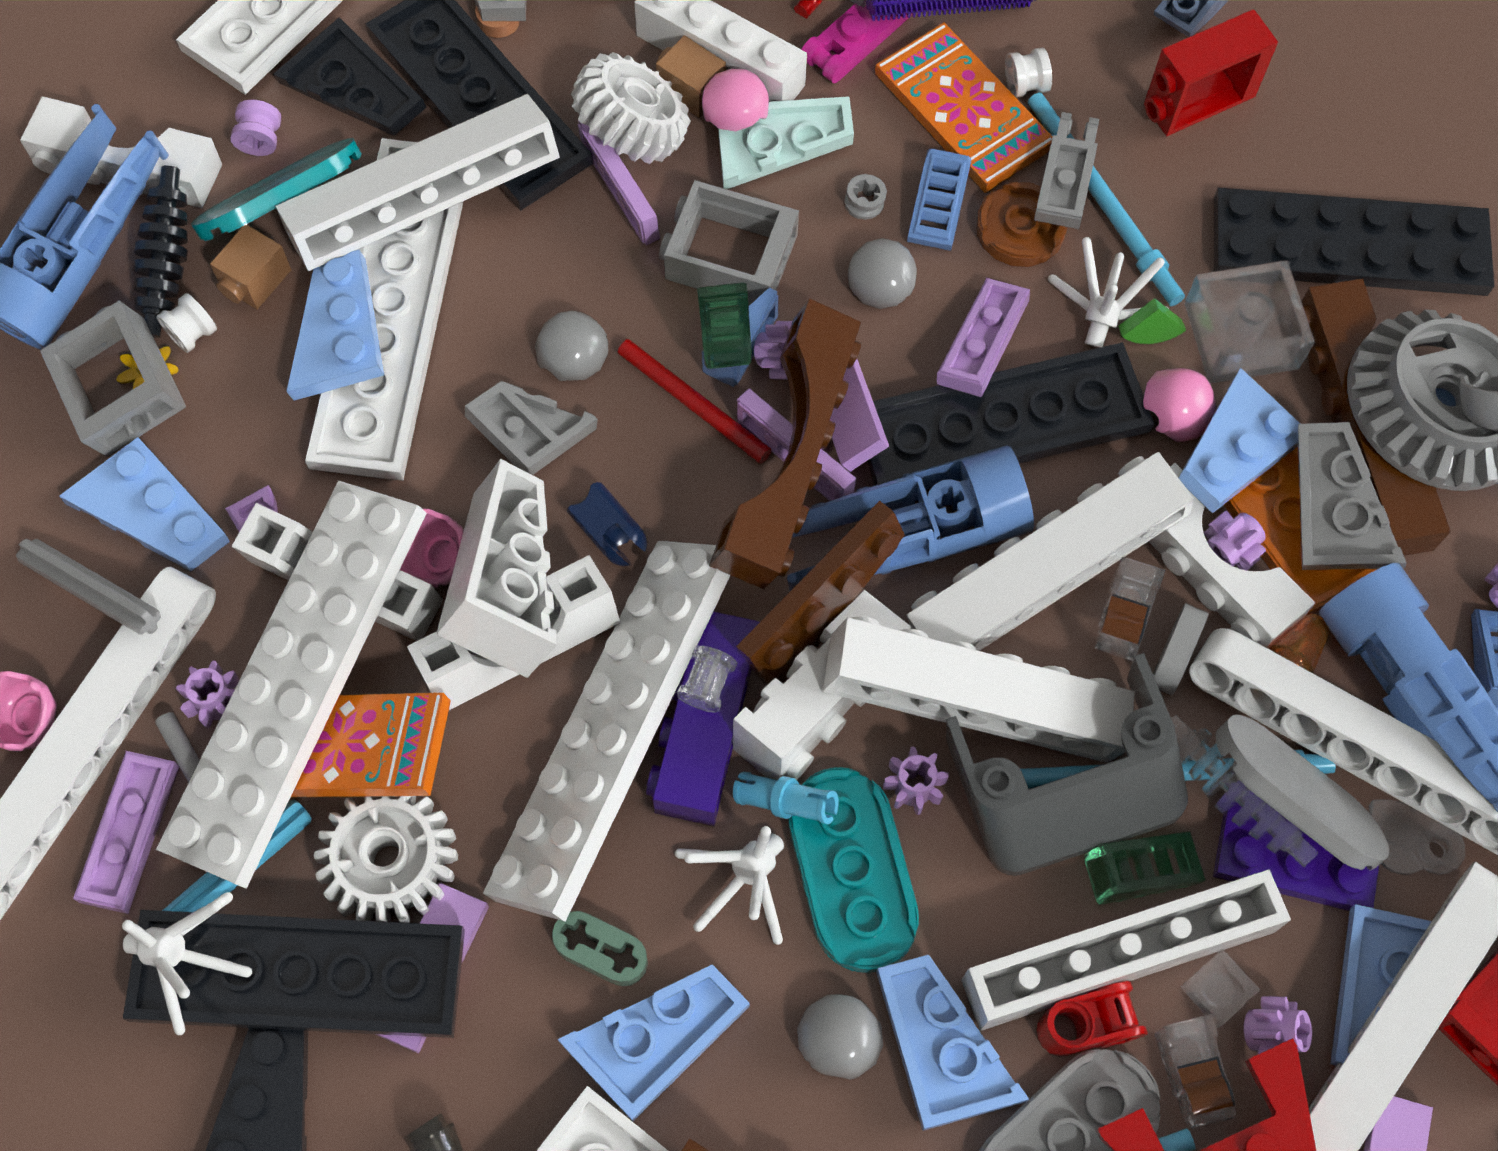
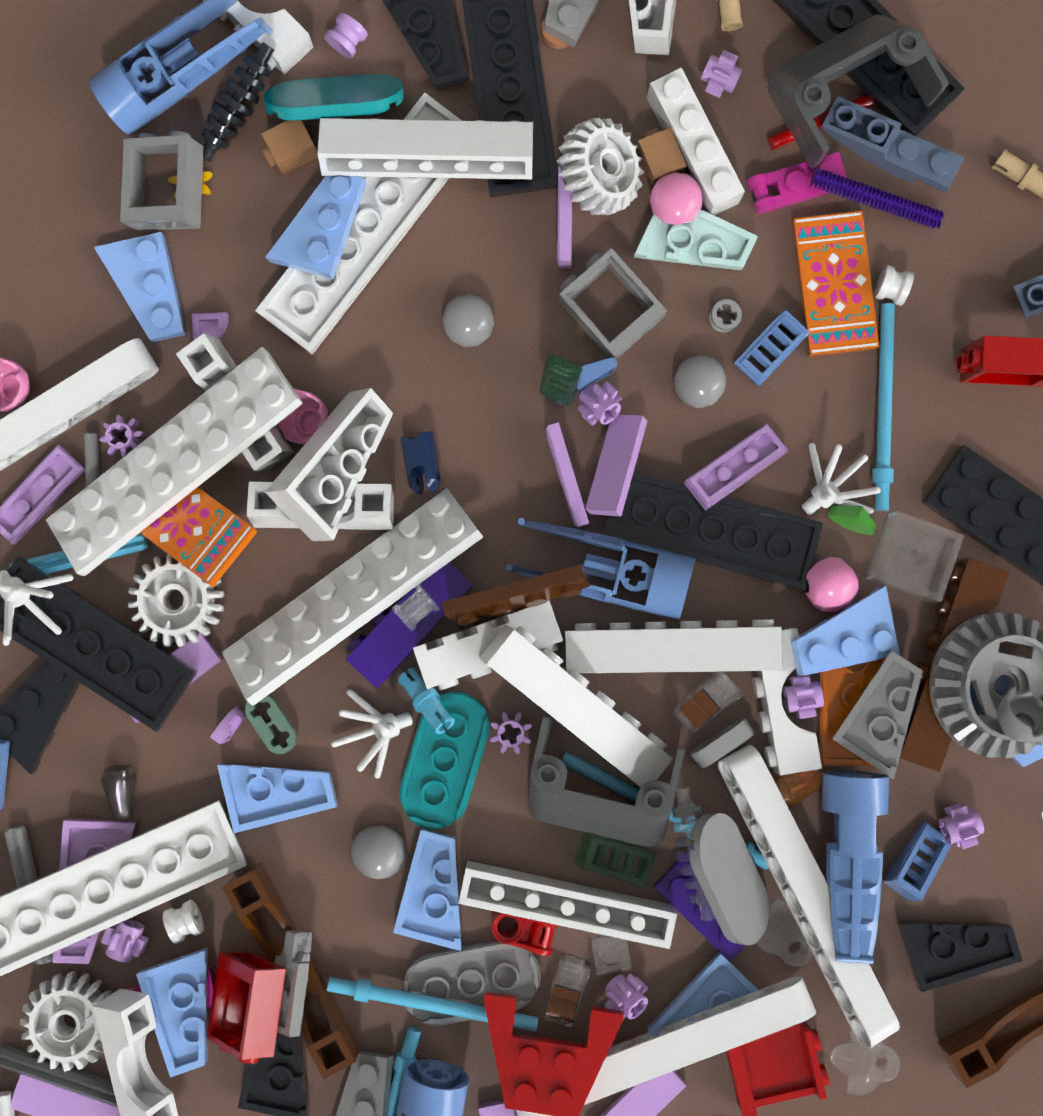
camera: 30 degrees right, 20 degrees up
(88, 586) = (80, 326): light grey axle -> none
(186, 322) = (229, 165): white wheel -> none
(527, 426) = (408, 363): light grey wing -> none
(544, 983) = (228, 725): none -> lavender tile
(694, 401) = (524, 402): red bar -> none
(815, 359) = (608, 433): reddish brown arch -> none
(1009, 228) = (816, 395): dark orange tile -> none
(1067, 175) = (866, 382): light grey hinge -> none

